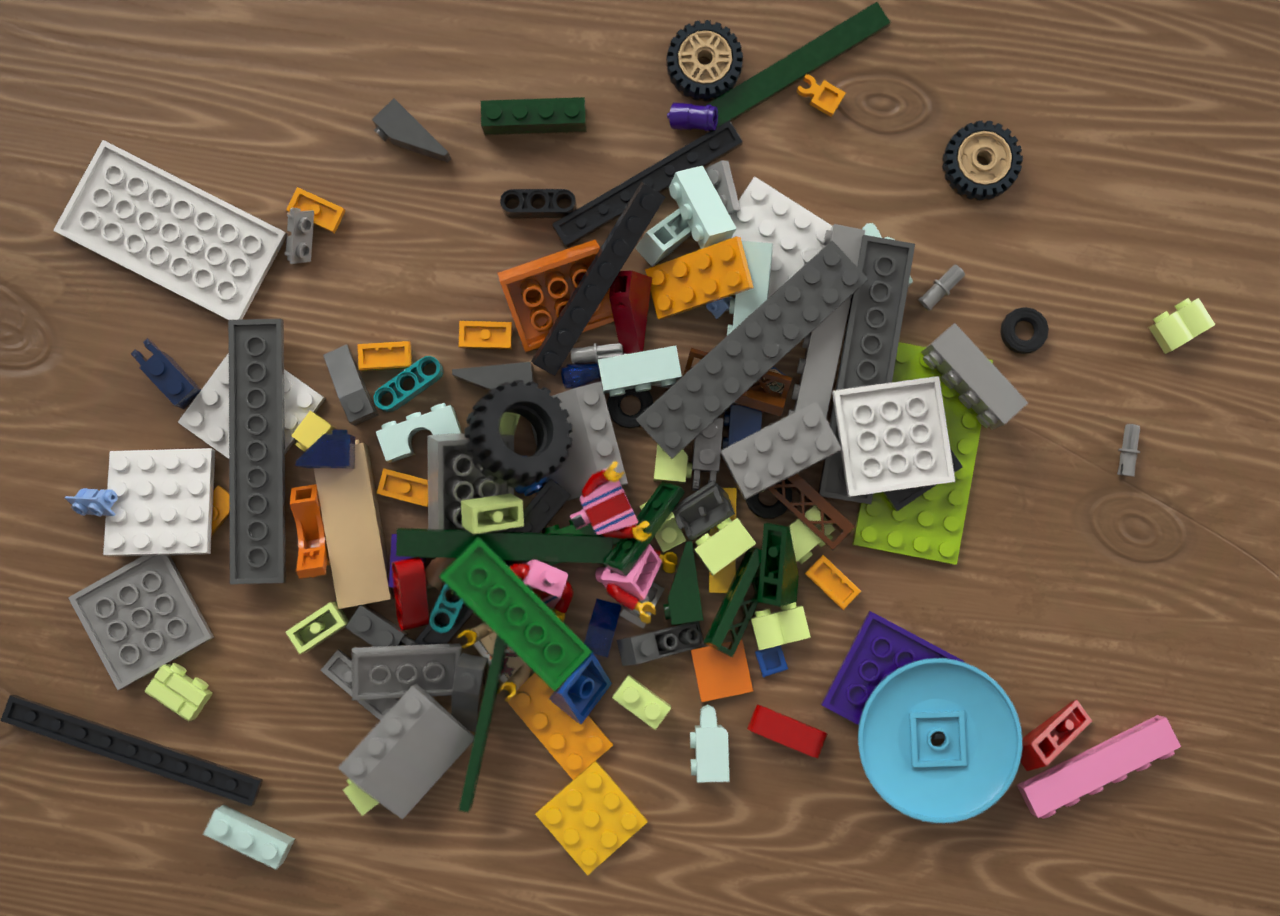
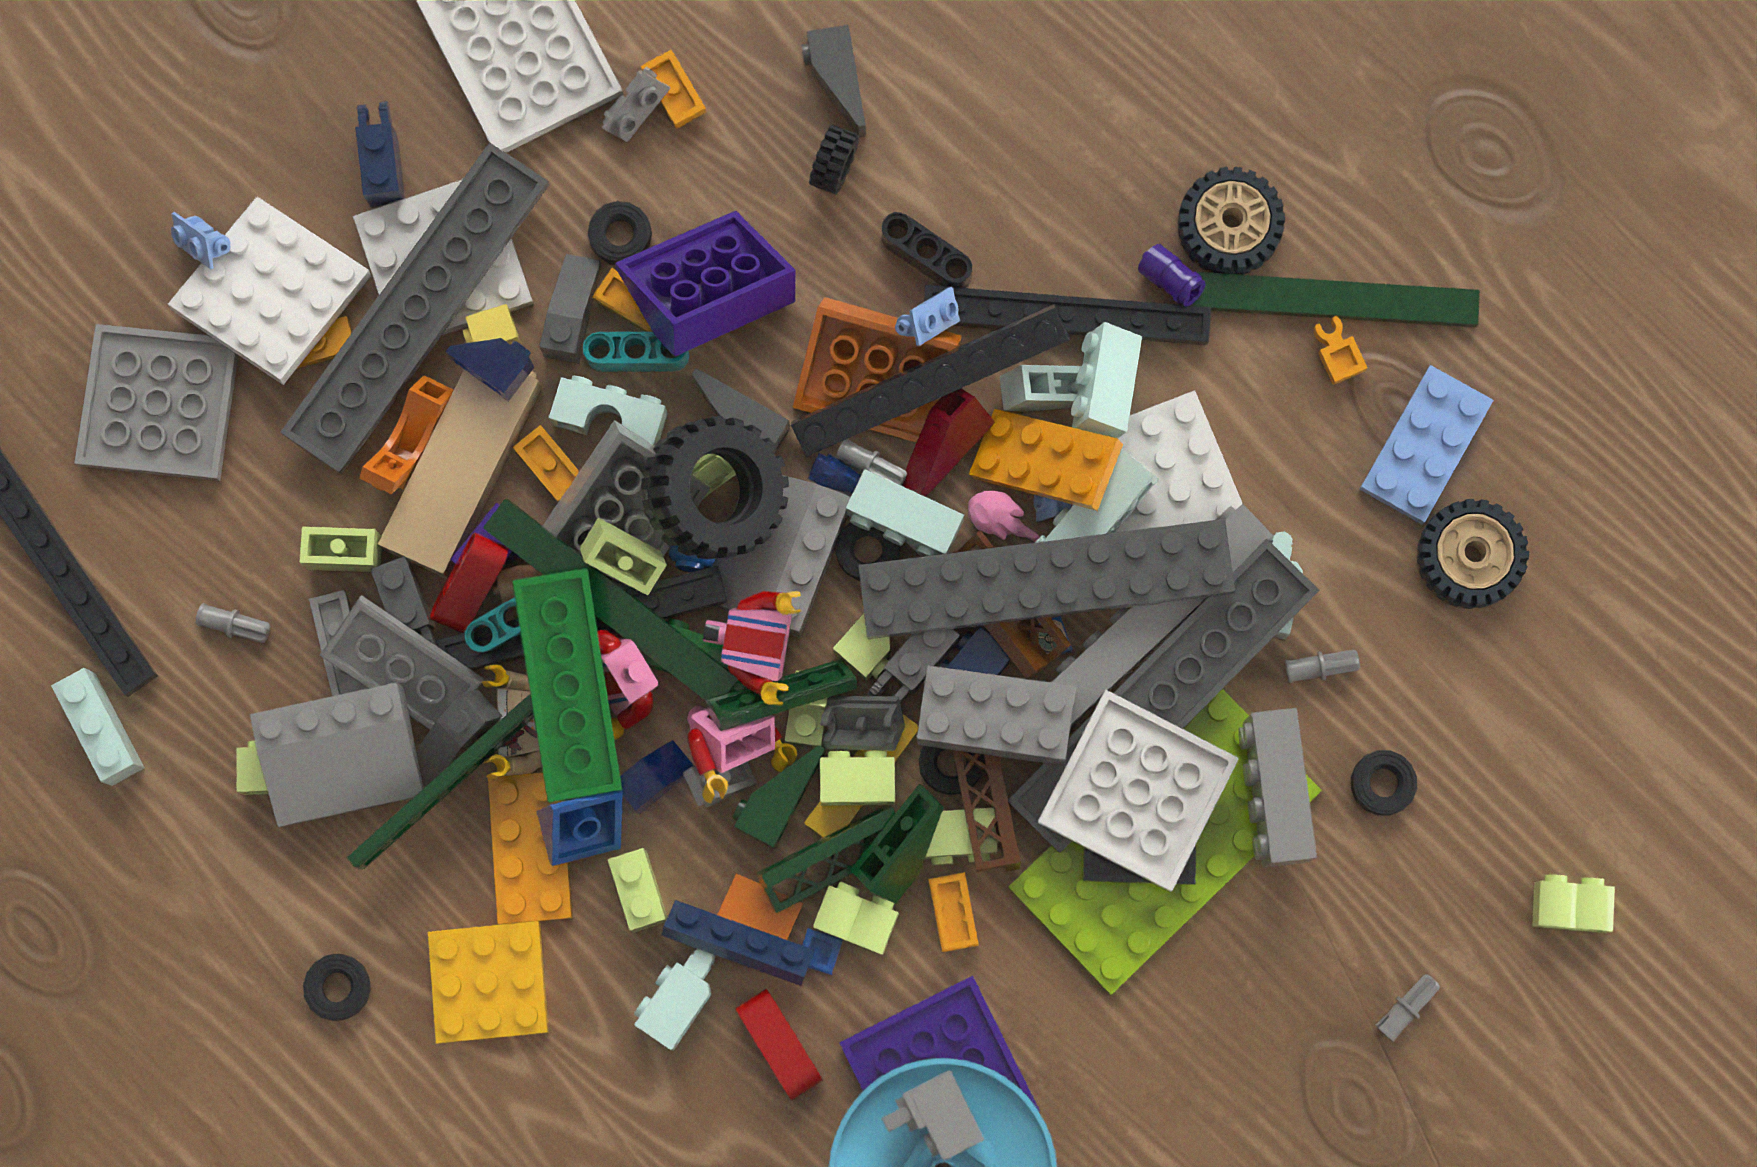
camera: 40 degrees right, 5 degrees down
(179, 691) = (139, 512): yellowish green brick -> none
(285, 716) = (232, 623): none -> light grey axle
(335, 308) = (615, 212): none -> black tyre
(422, 312) = (707, 282): none -> dark purple slope
(444, 186) = (834, 159): none -> black tyre
(485, 335) = (761, 357): light orange plate -> none
(500, 901) = (354, 1001): none -> black tyre
(533, 116) = (991, 151): dark green brick -> none
(571, 242) = (930, 317): none -> light blue hinge
(660, 643) = (707, 840): dark grey slope -> none
(690, 331) = (994, 513): none -> bright pink piece
(722, 690) = (737, 942): none -> dark blue plate
(723, 183) = (1150, 375): light grey plate -> none
(909, 115) = (1426, 444): none -> light blue plate
(917, 705) = (943, 1111): none -> light grey hinge

